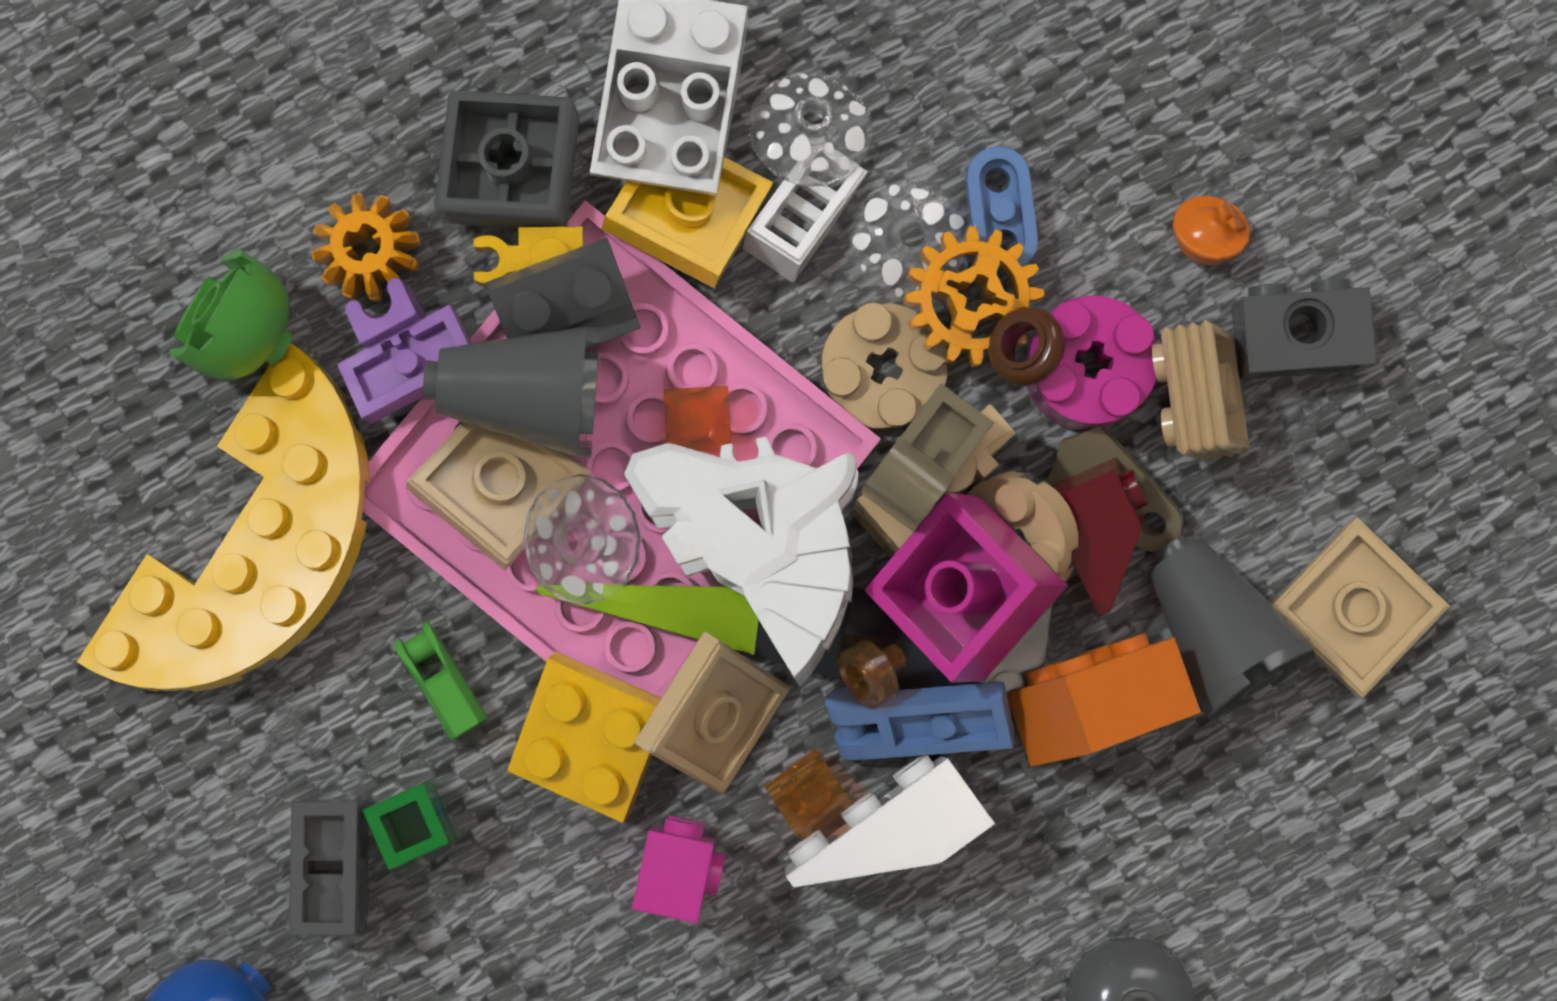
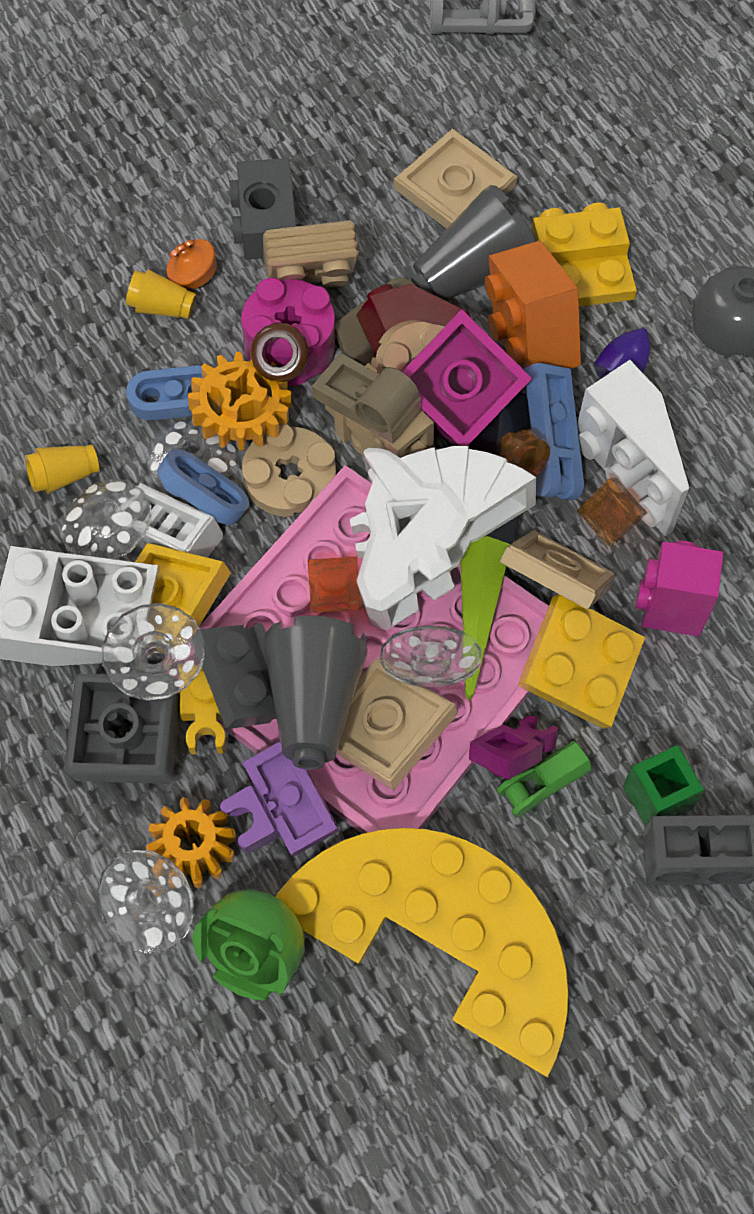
camera: 90 degrees left, 20 degrees down
(291, 194) = (131, 912): none -> clear dish
(466, 641) = (511, 750): none -> magenta plate
(575, 159) = (150, 631): none -> clear dish
(849, 250) = (202, 486): none -> medium blue plate
(888, 65) = (59, 466): none -> yellow cone
(1029, 826) = (628, 346): none -> dark purple plate
(1157, 186) = (158, 296): none -> yellow cone
(1225, 786) = (590, 250): none -> yellow plate

